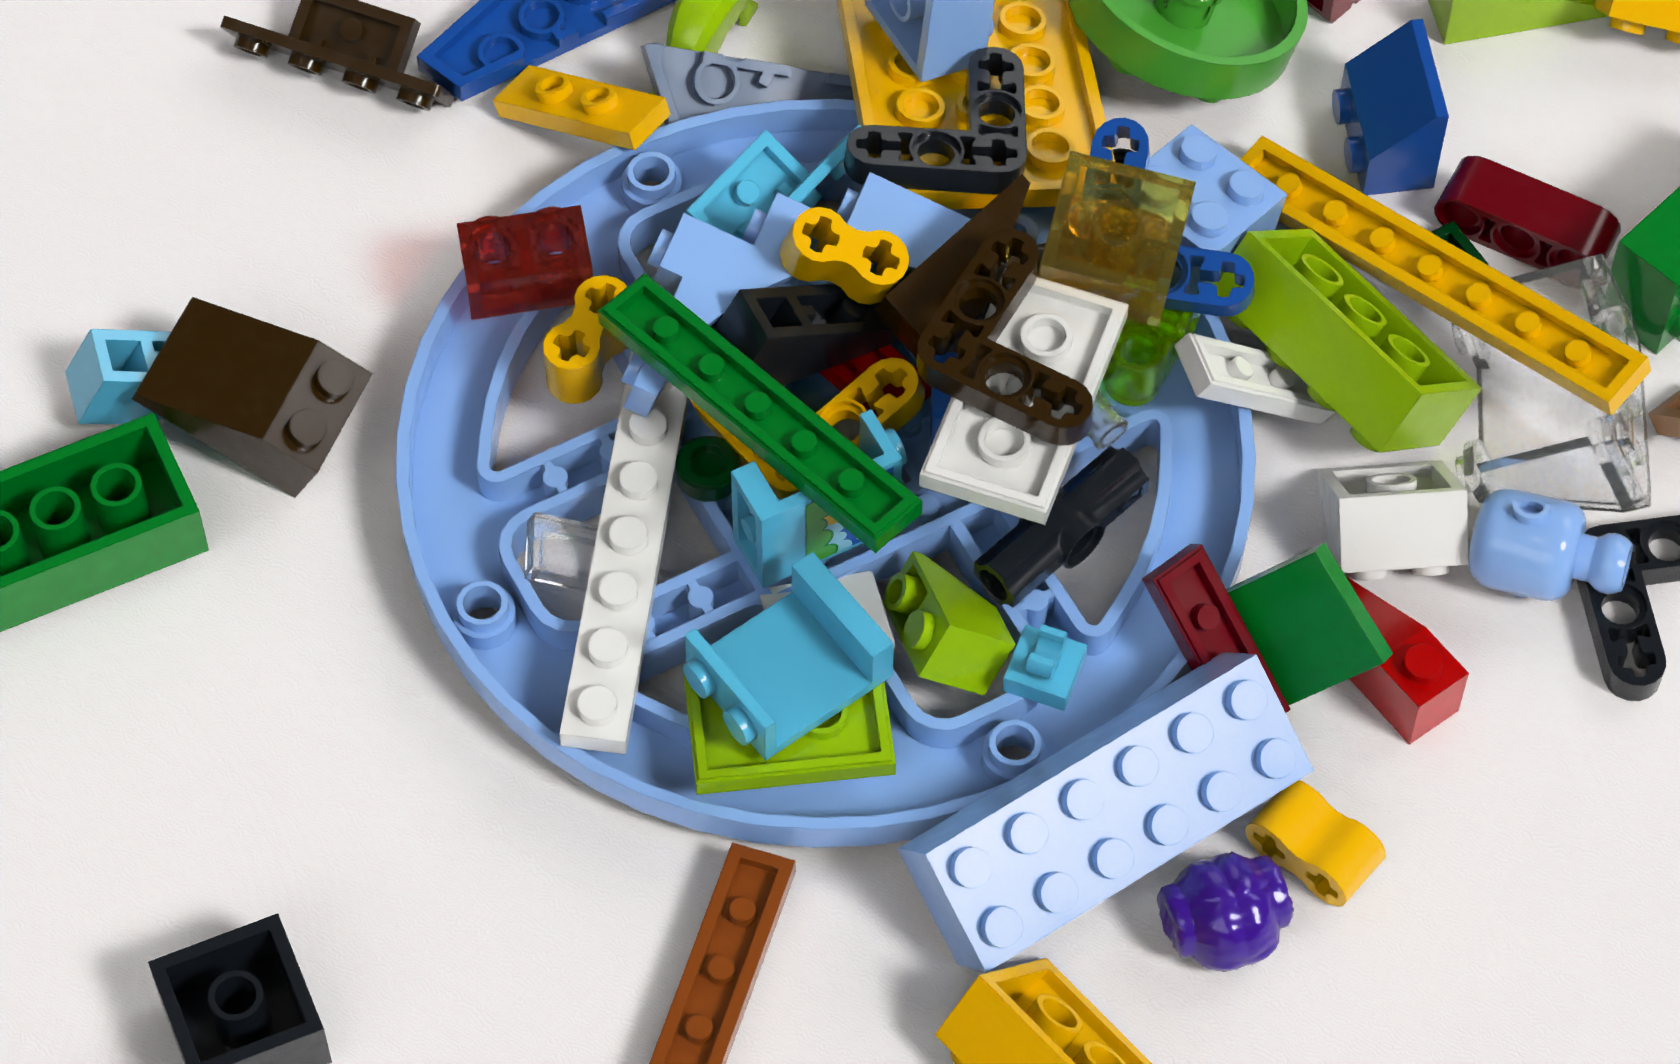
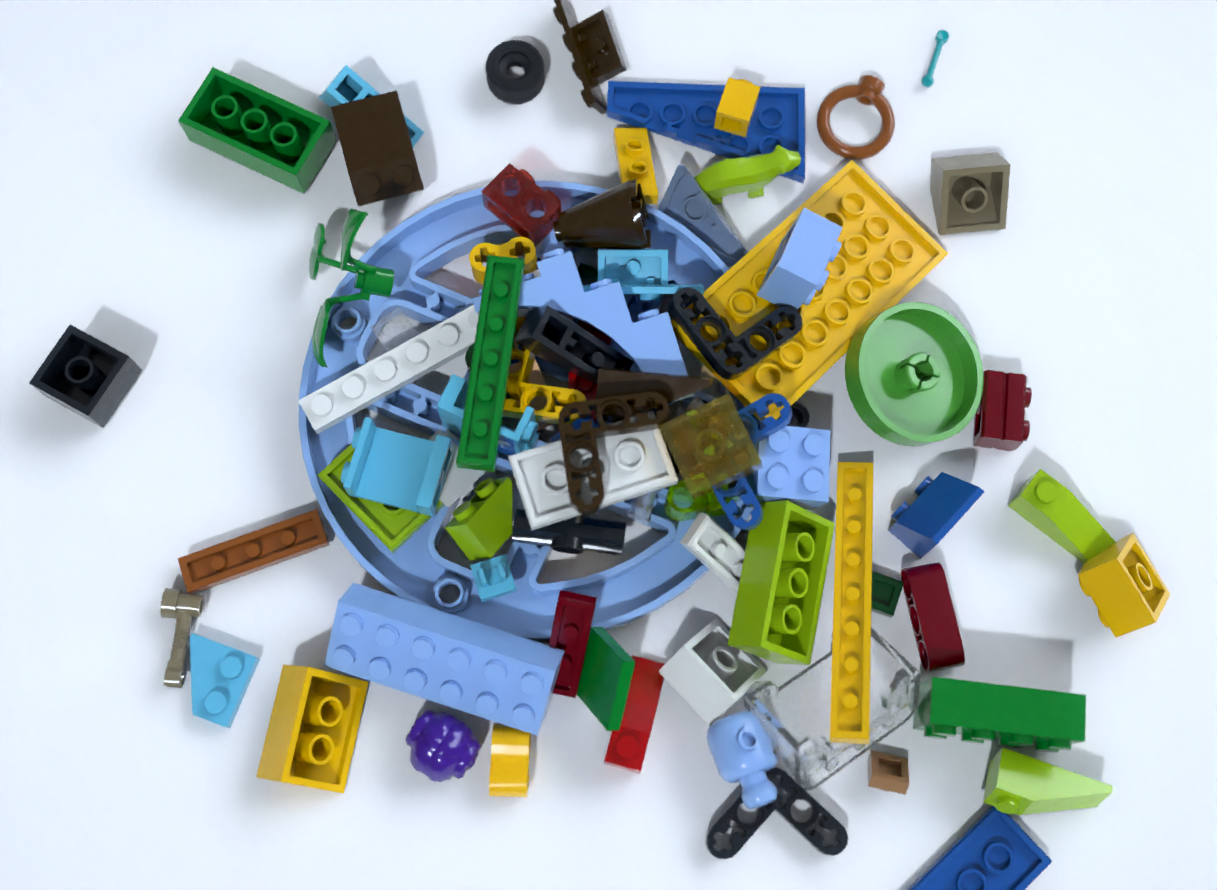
camera: 50 degrees right, 15 degrees up
(281, 128) = (512, 54): none -> black tyre
(413, 462) = (367, 278): none -> green plant
(654, 170) = (607, 220): none -> dark brown cone
(844, 255) = (606, 335): yellow axle -> none

